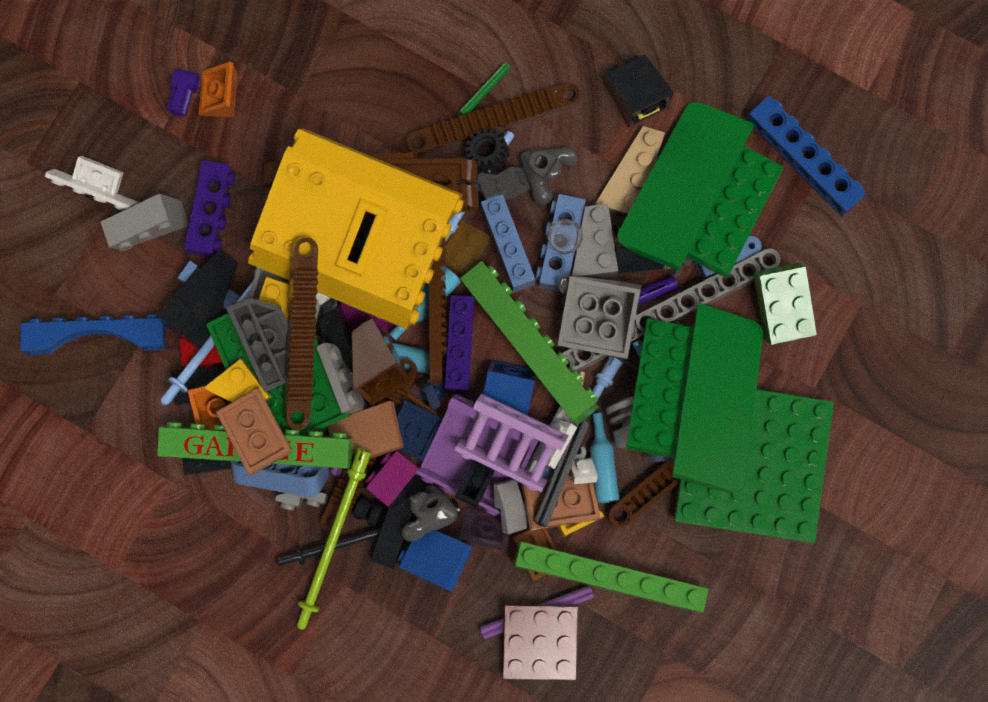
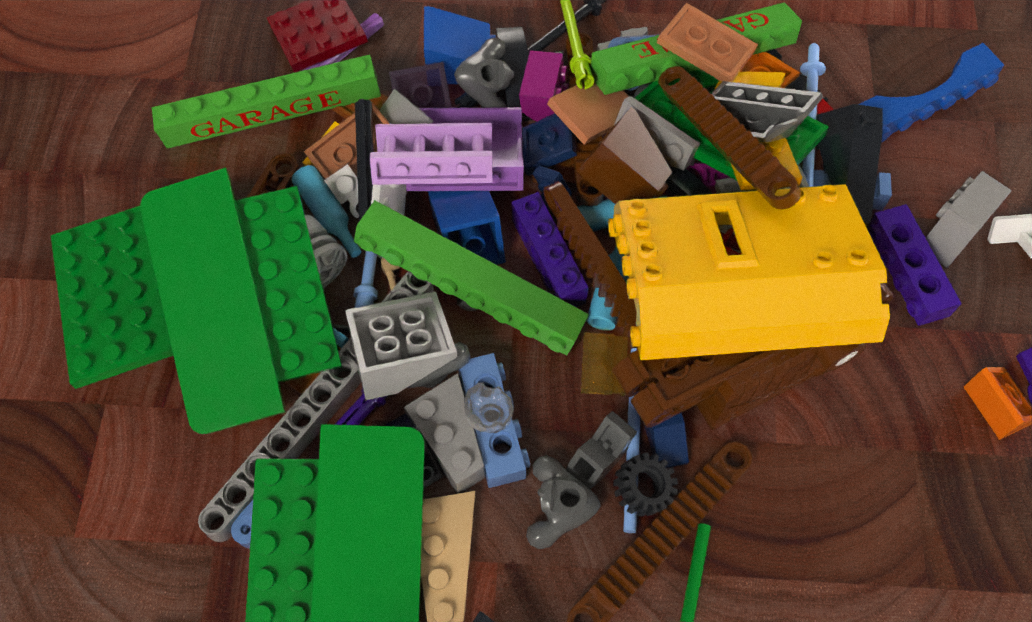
camera: 155 degrees right, 15 degrees down
(475, 483) = (453, 105): black slope -> none
(507, 243) = (555, 384): medium blue brick -> none
(785, 303) = (171, 470): brick -> none

